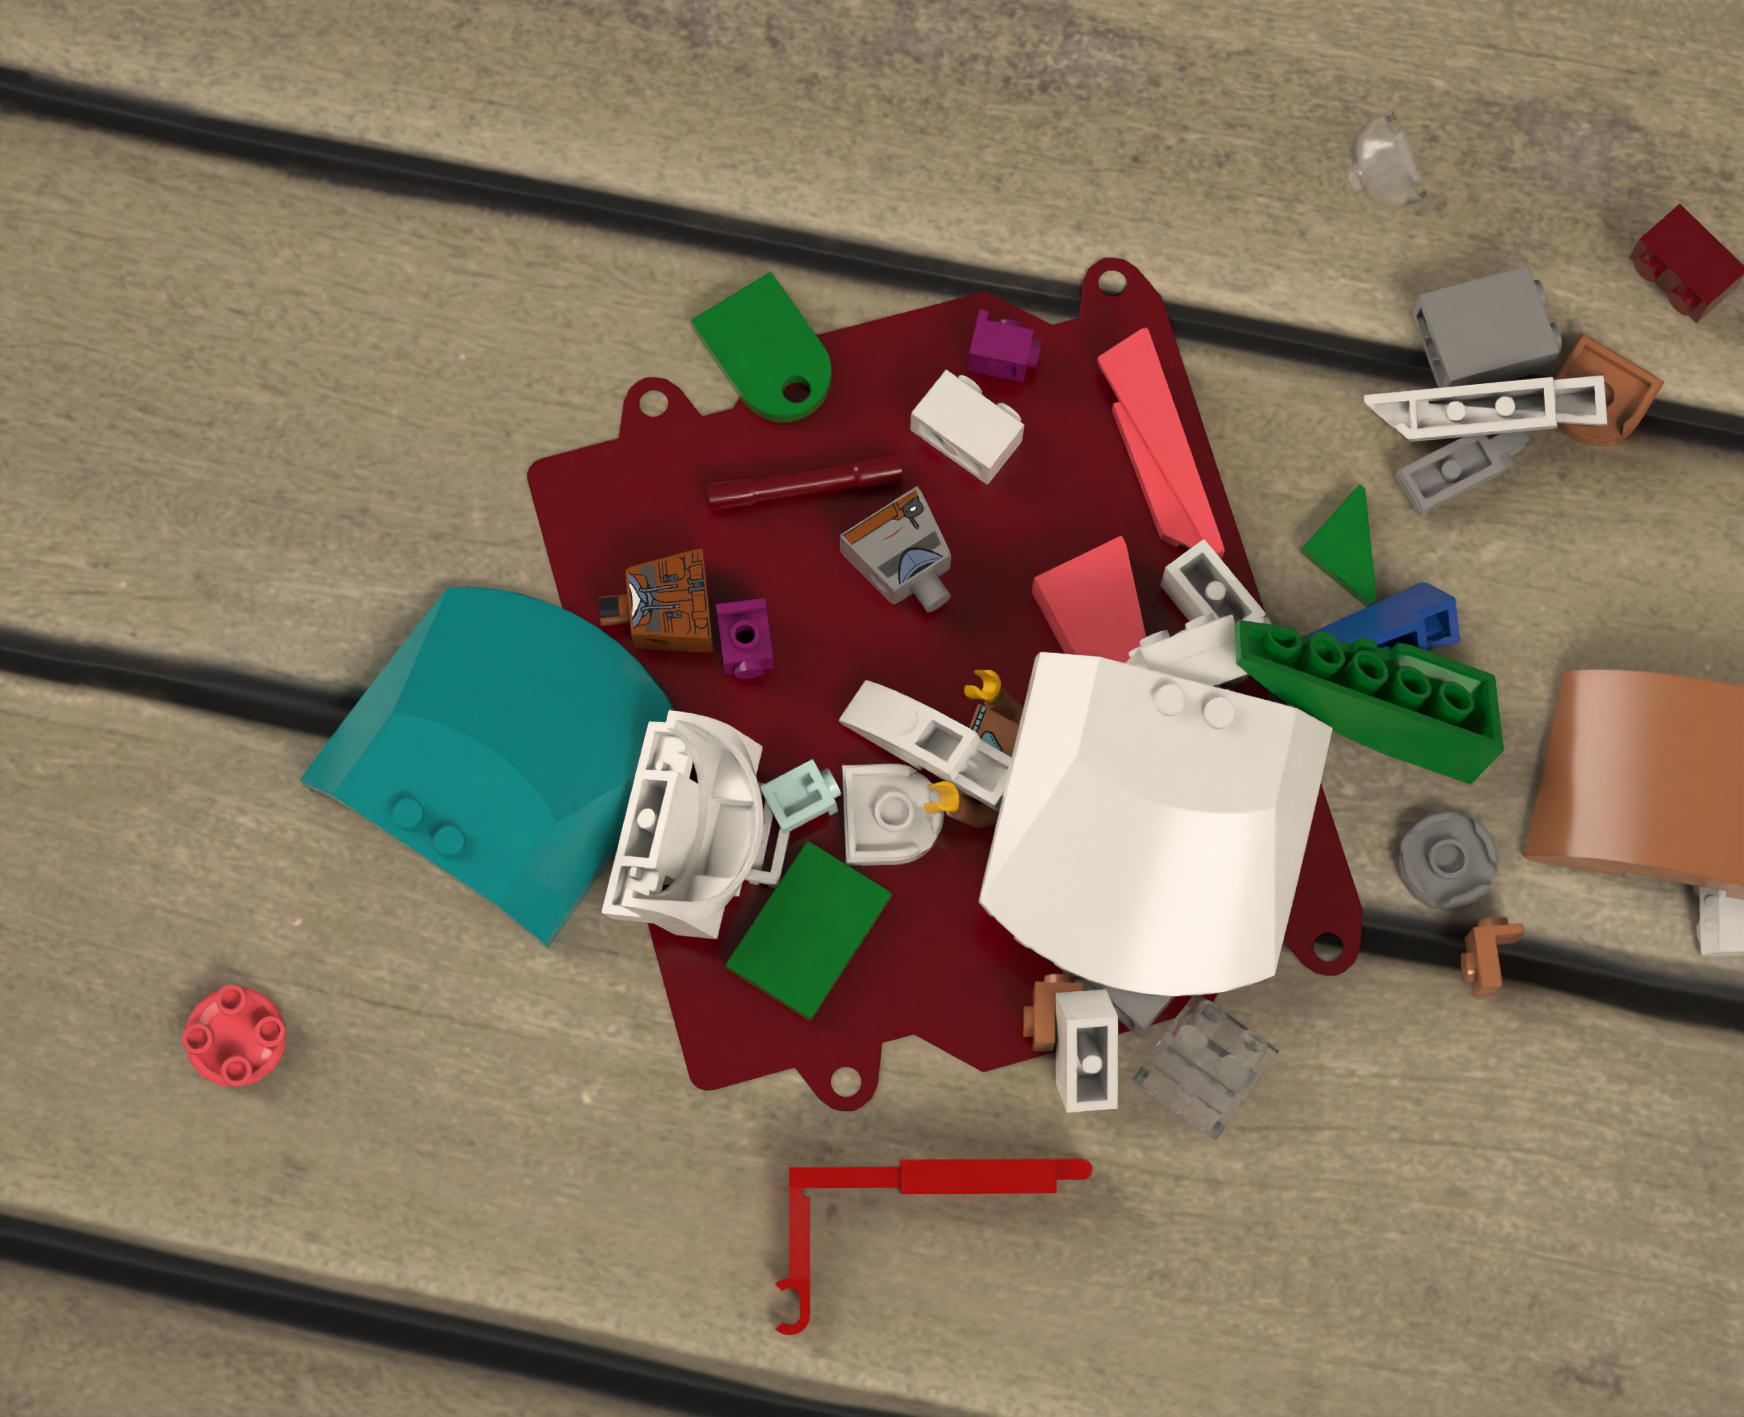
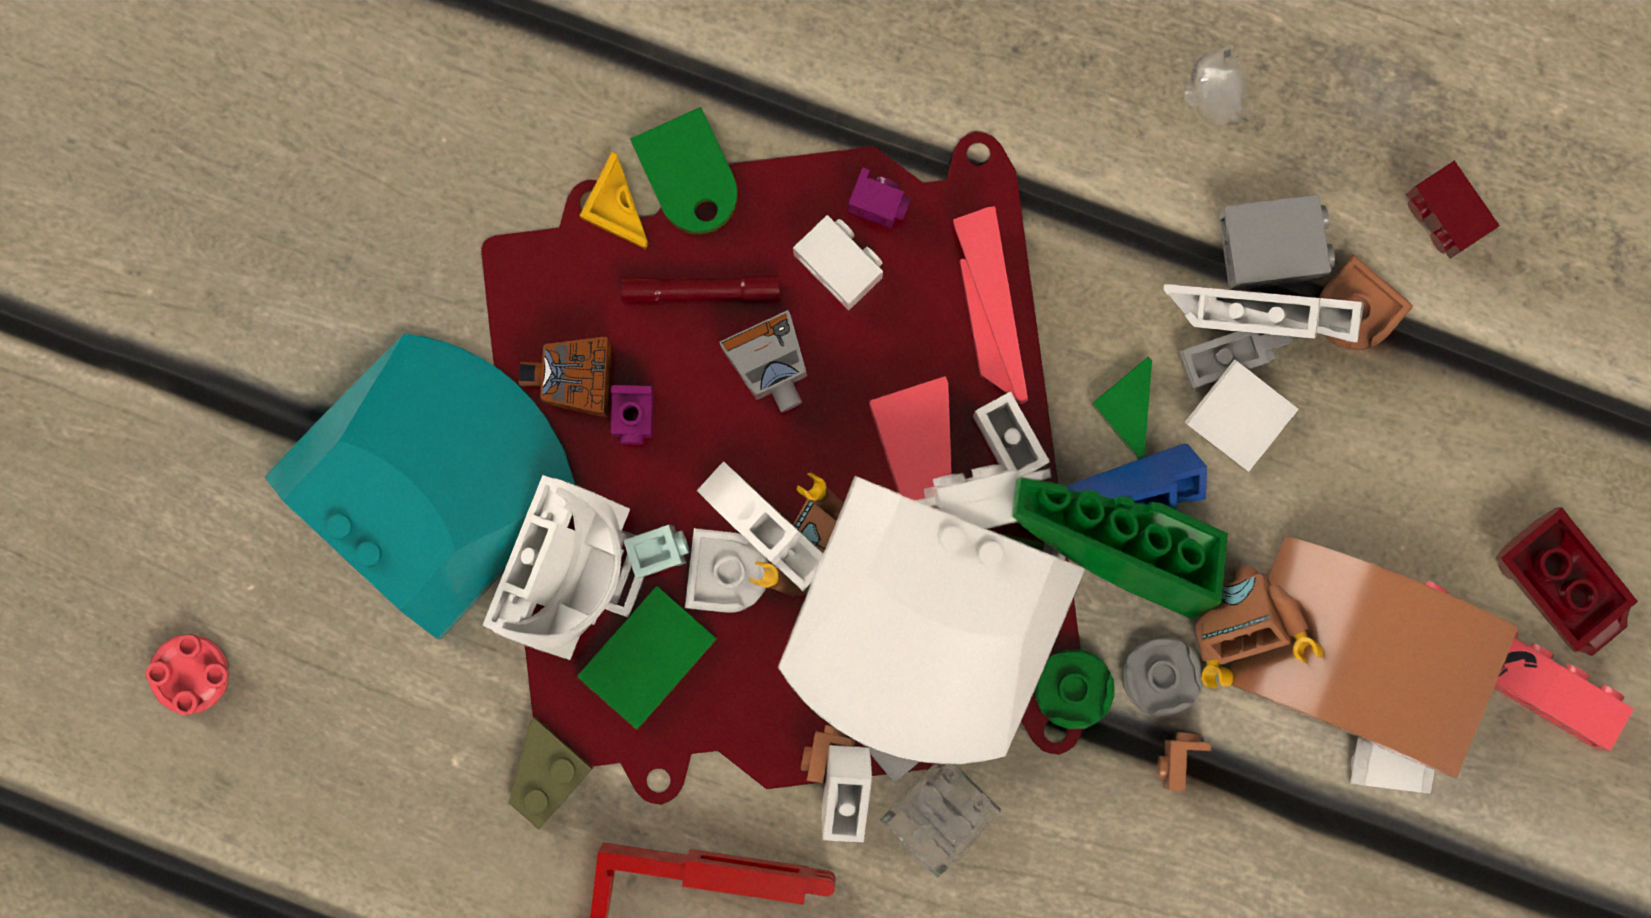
camera: 15 degrees right, 10 degrees up
(682, 403) = (612, 205): none -> yellow tile
(704, 1093) = (545, 774): none -> olive wing
(1343, 891) = (1074, 689): none -> green tile
(1484, 535) = (1241, 415): none -> white tile
(1539, 770) = (1248, 622): none -> nougat torso

